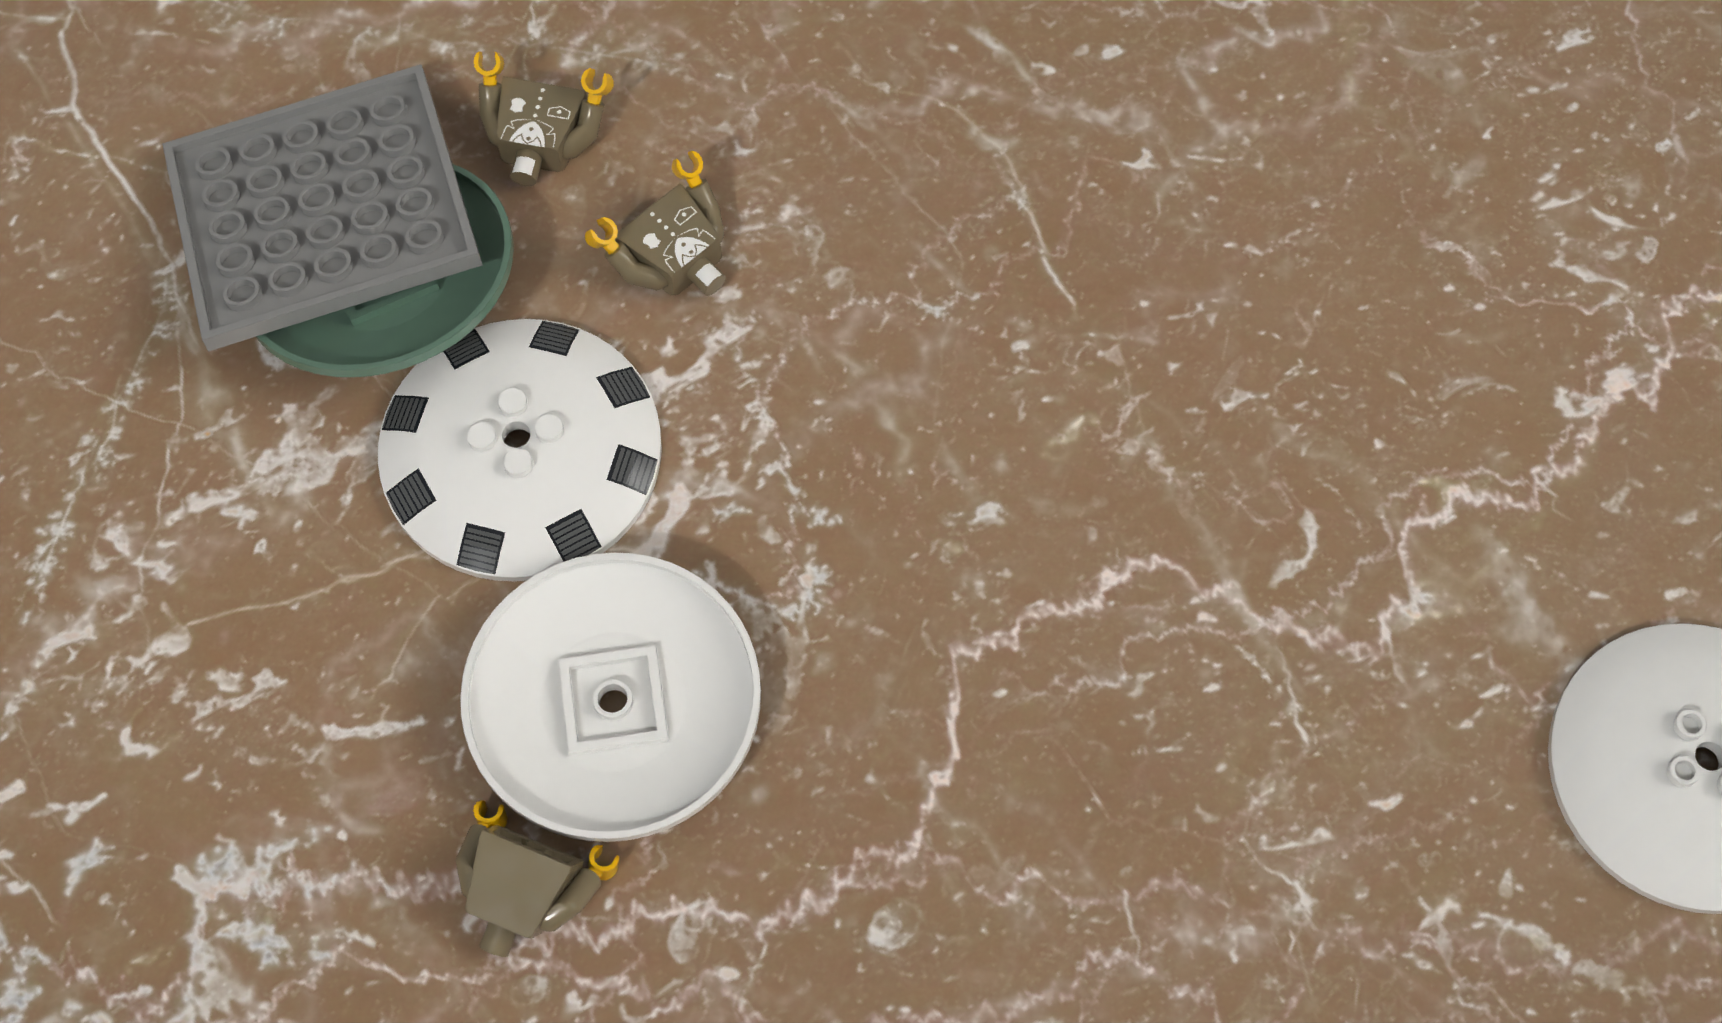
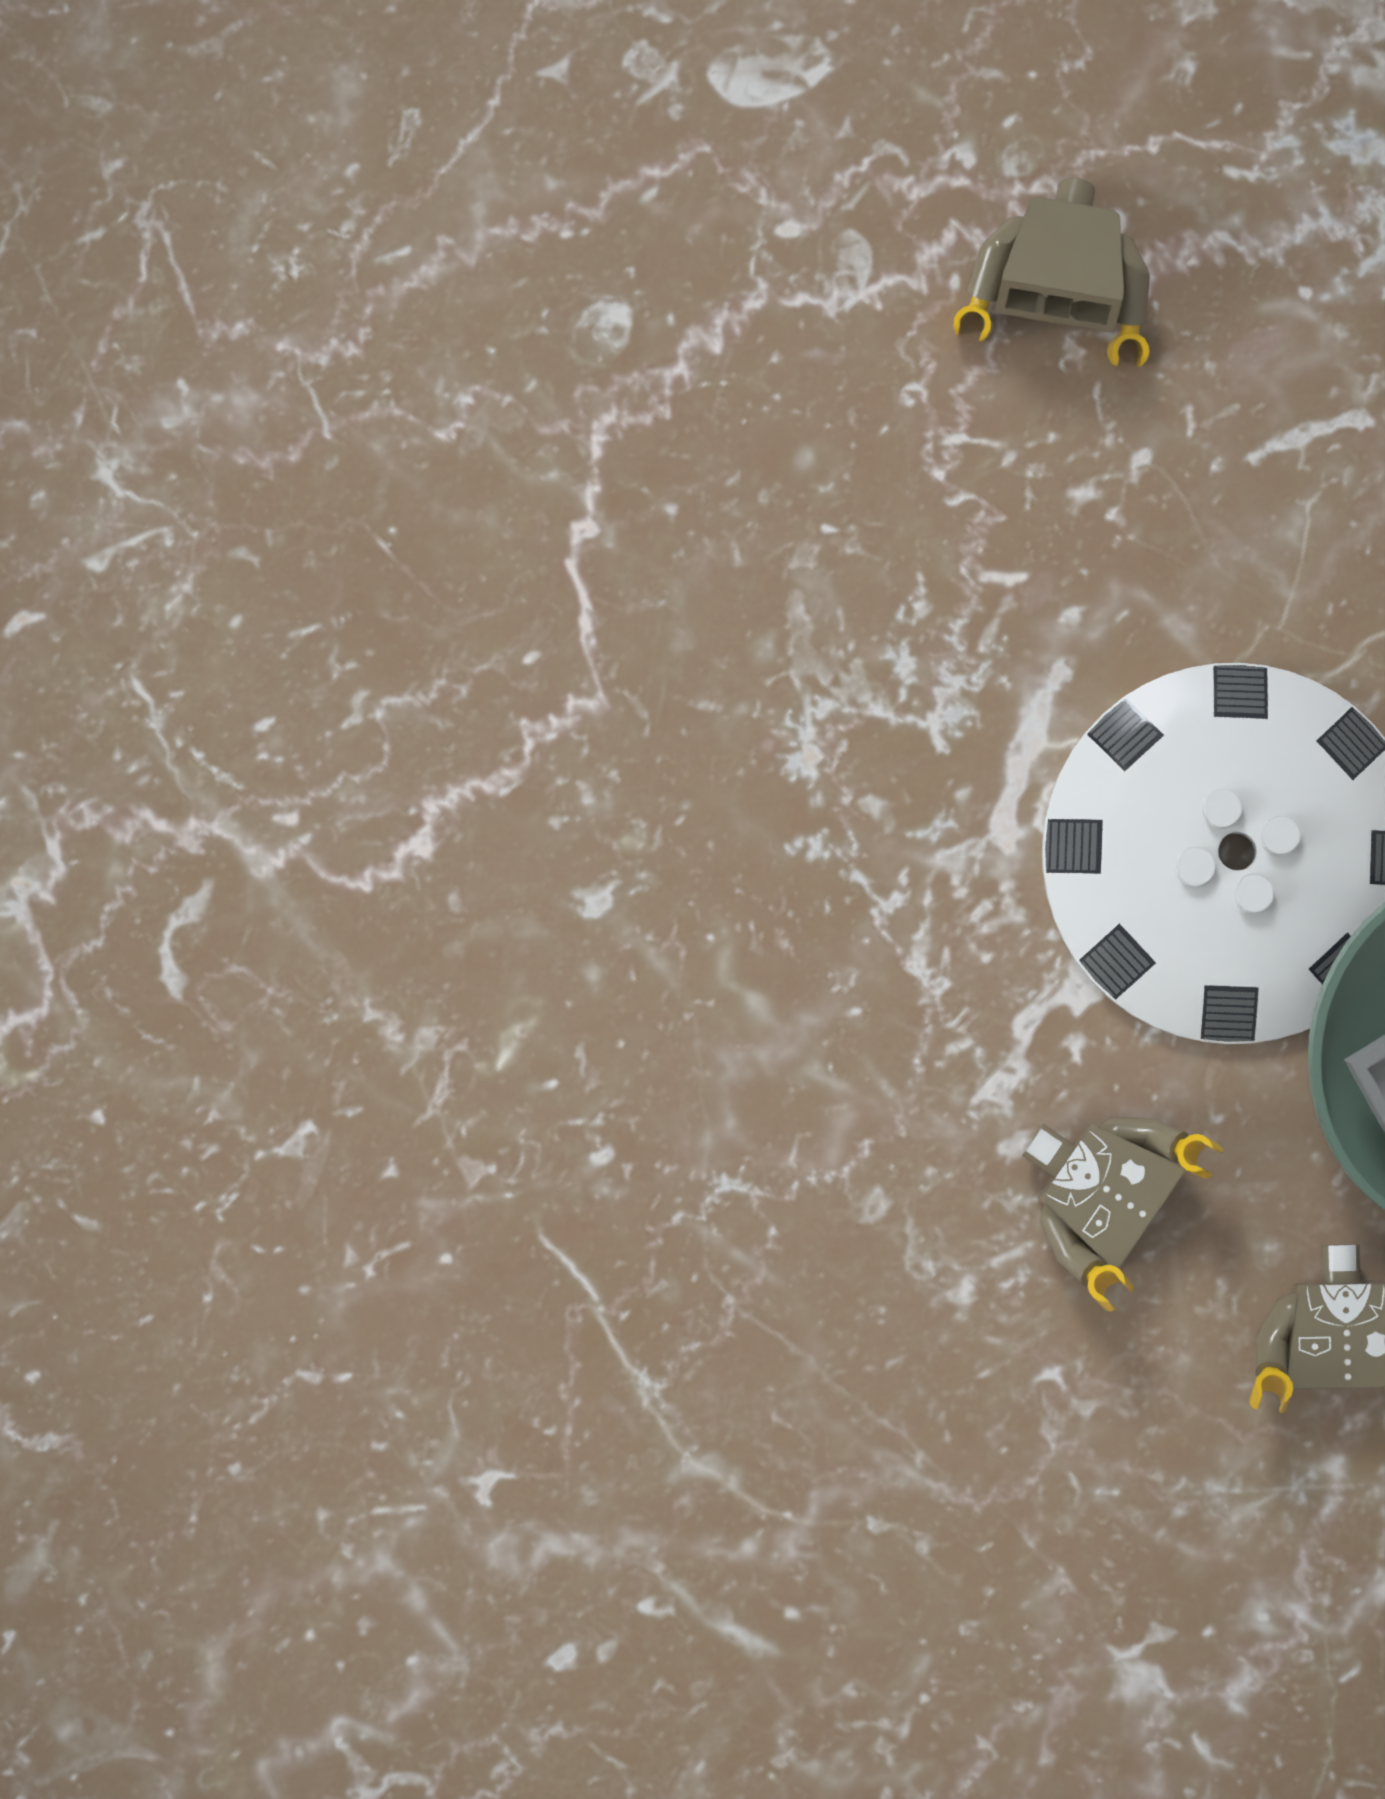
camera: 170 degrees right, 20 degrees up
(598, 629) = (1034, 432): white dish -> none

